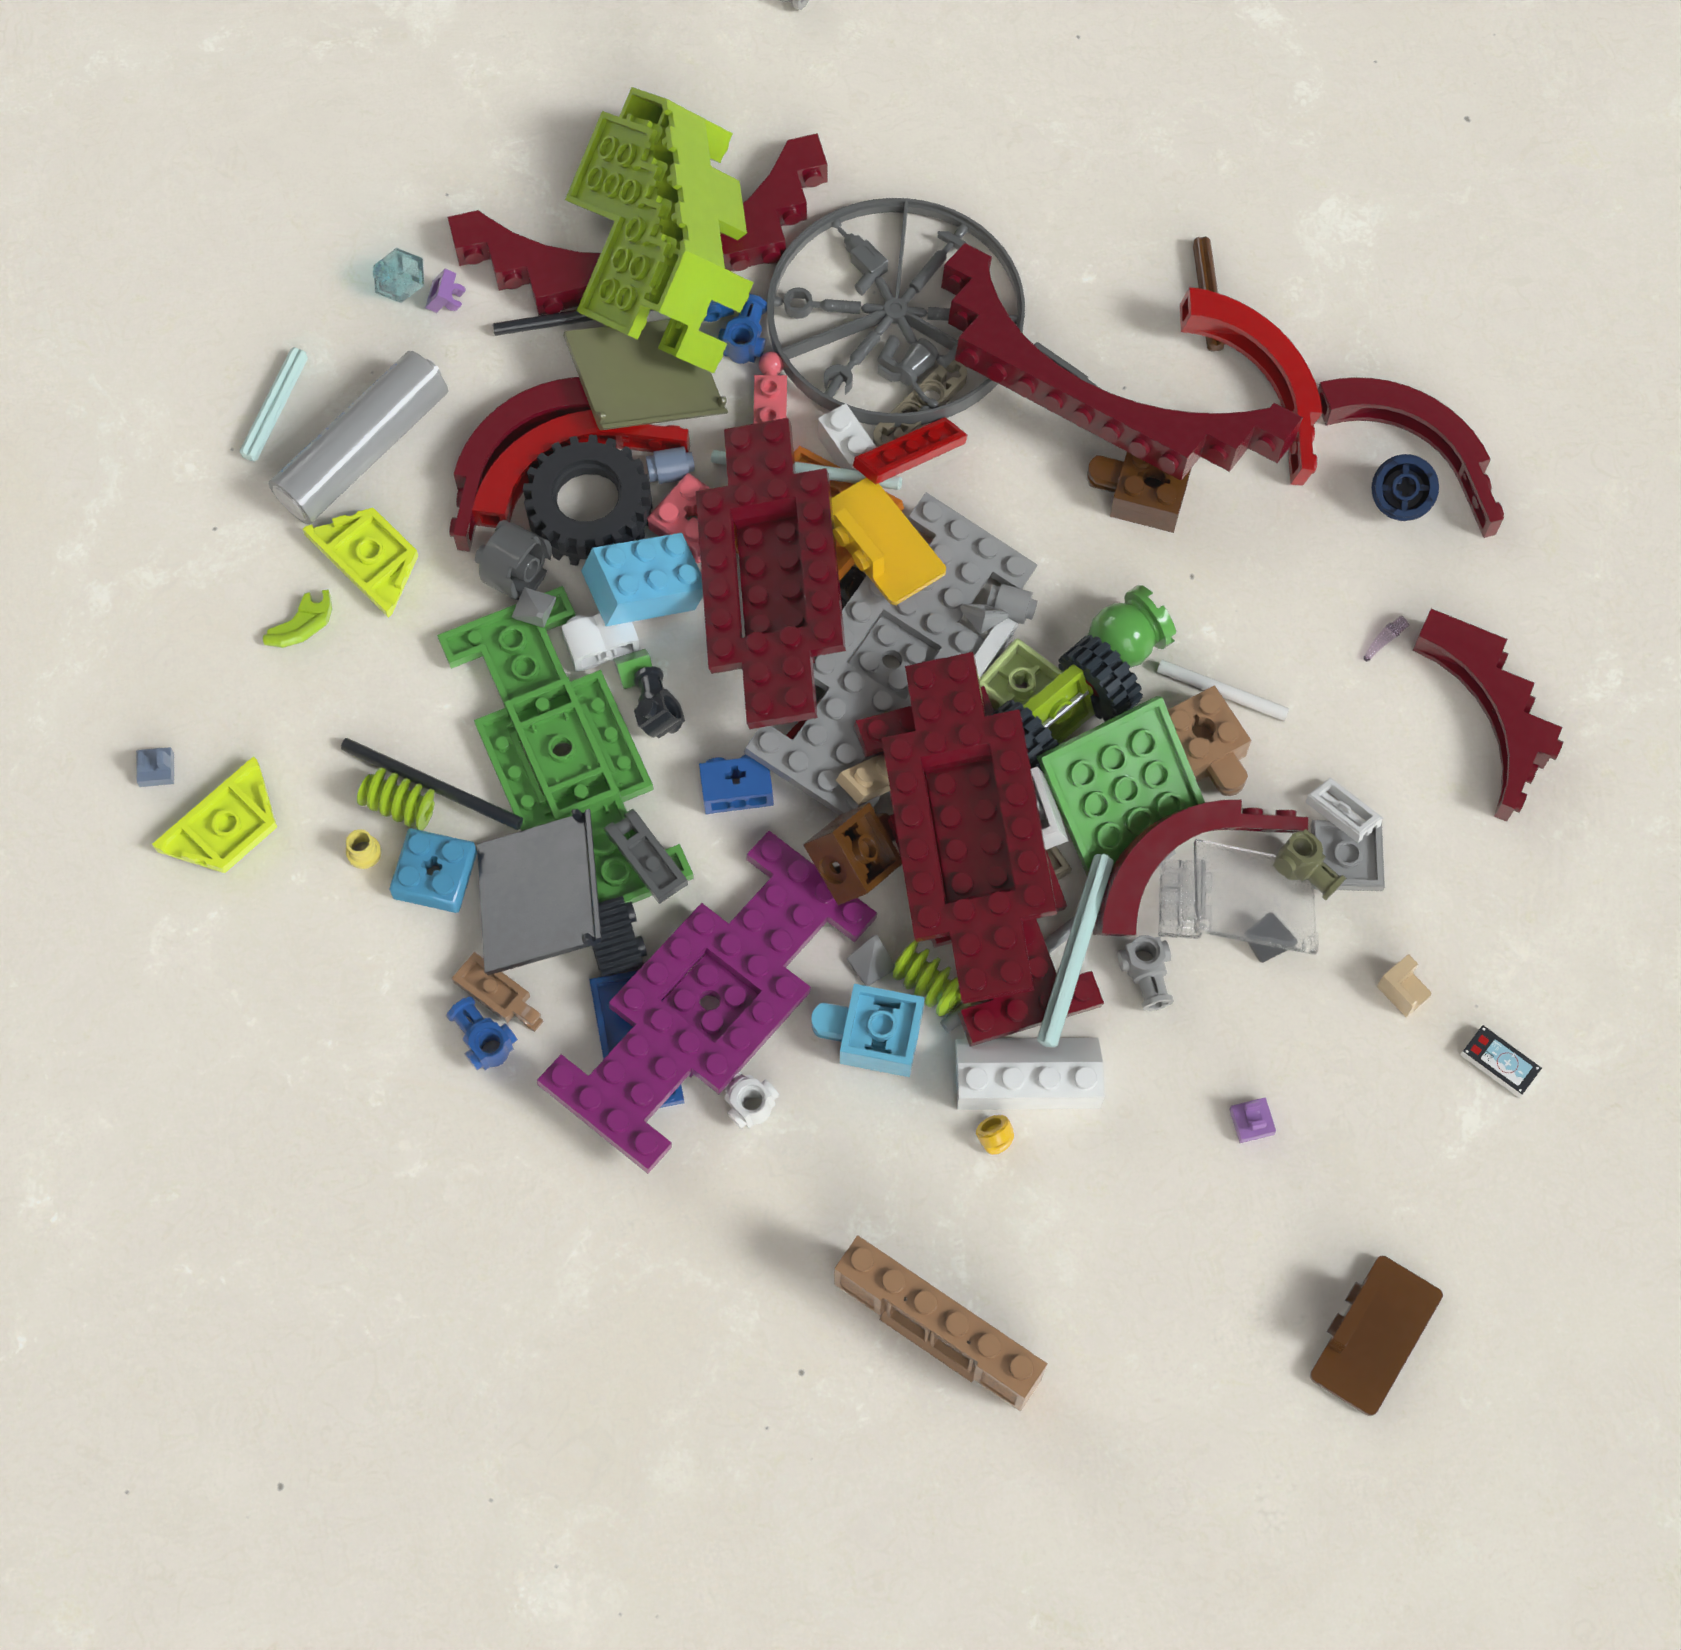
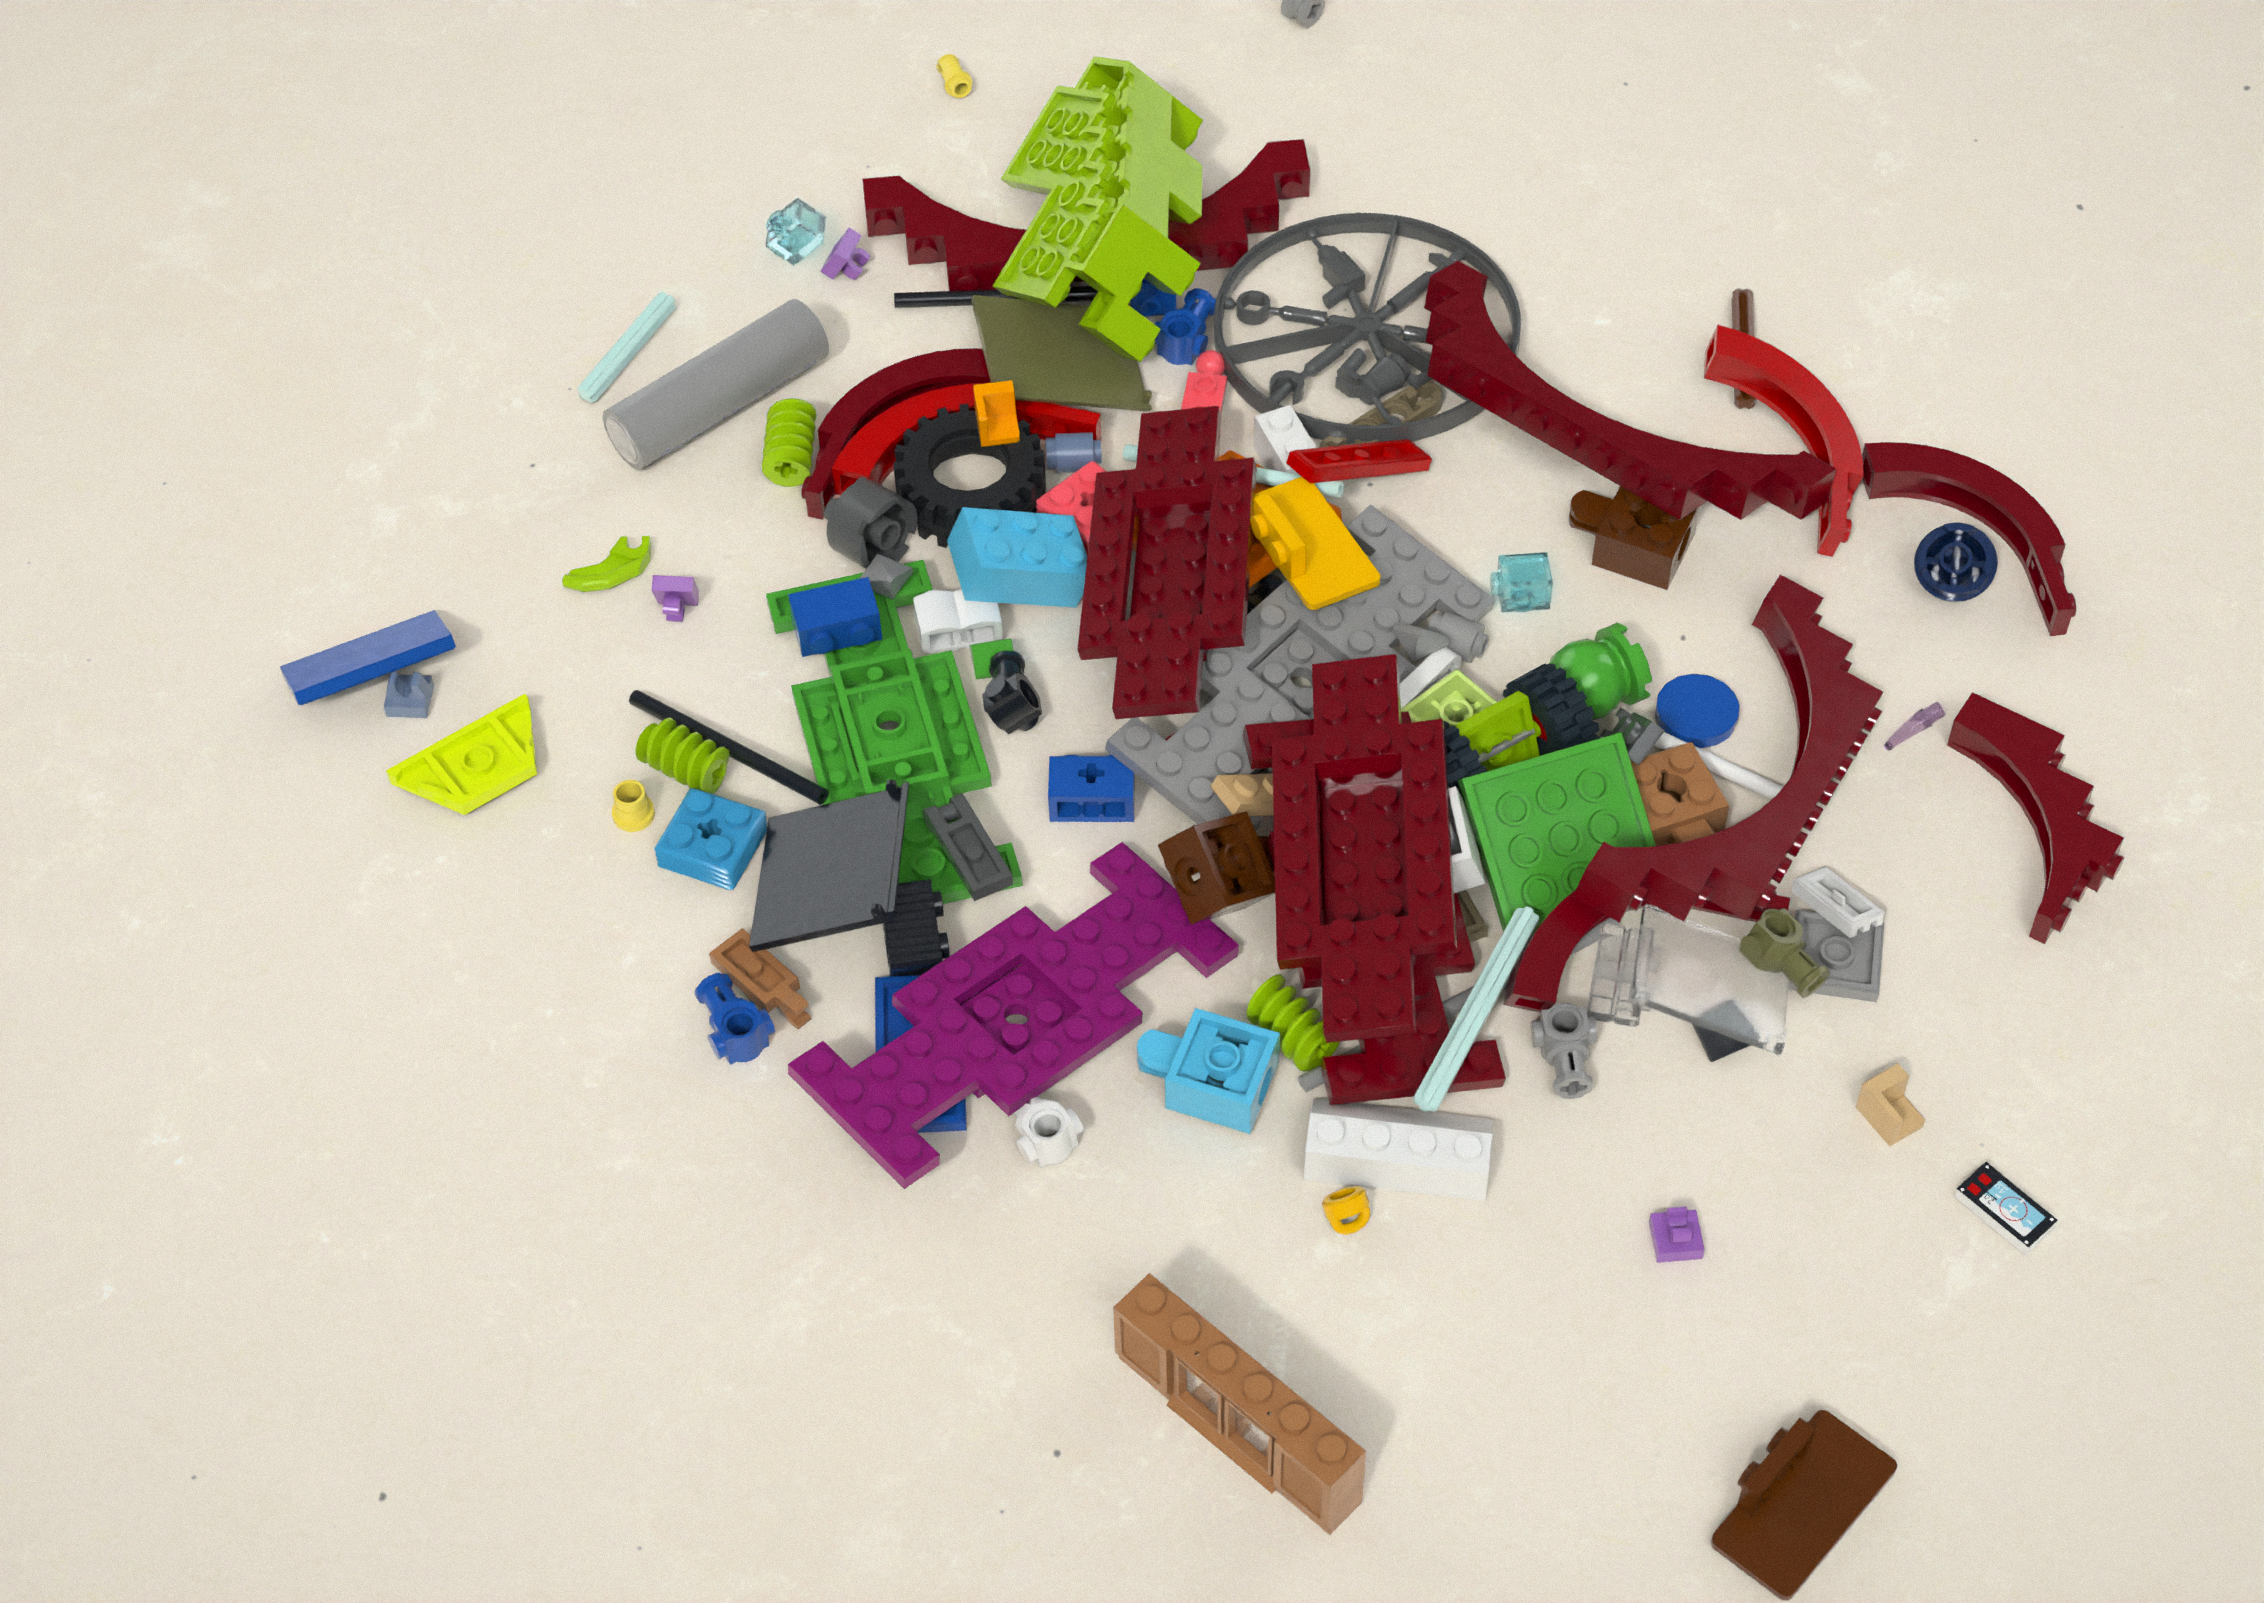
camera: 10 degrees right, 15 degrees down
(114, 739) = (367, 657): none -> tile
(361, 645) = (674, 594): none -> medium lavender tile
(368, 554) = (703, 506): neon yellow wing -> none
(430, 485) = (789, 442): none -> lime piece
(501, 657) = (835, 616): none -> blue brick
(509, 101) = (956, 80): none -> light yellow pin
(603, 447) = (996, 413): none -> light orange panel
(871, 961) = (1224, 995): light grey slope -> none
(1057, 545) = (1522, 582): none -> clear light blue brick
(1168, 684) = (1638, 734): none -> dark grey hinge
(1212, 645) = (1697, 710): none -> blue tile
(1321, 645) = (1741, 861): none -> dark red arch

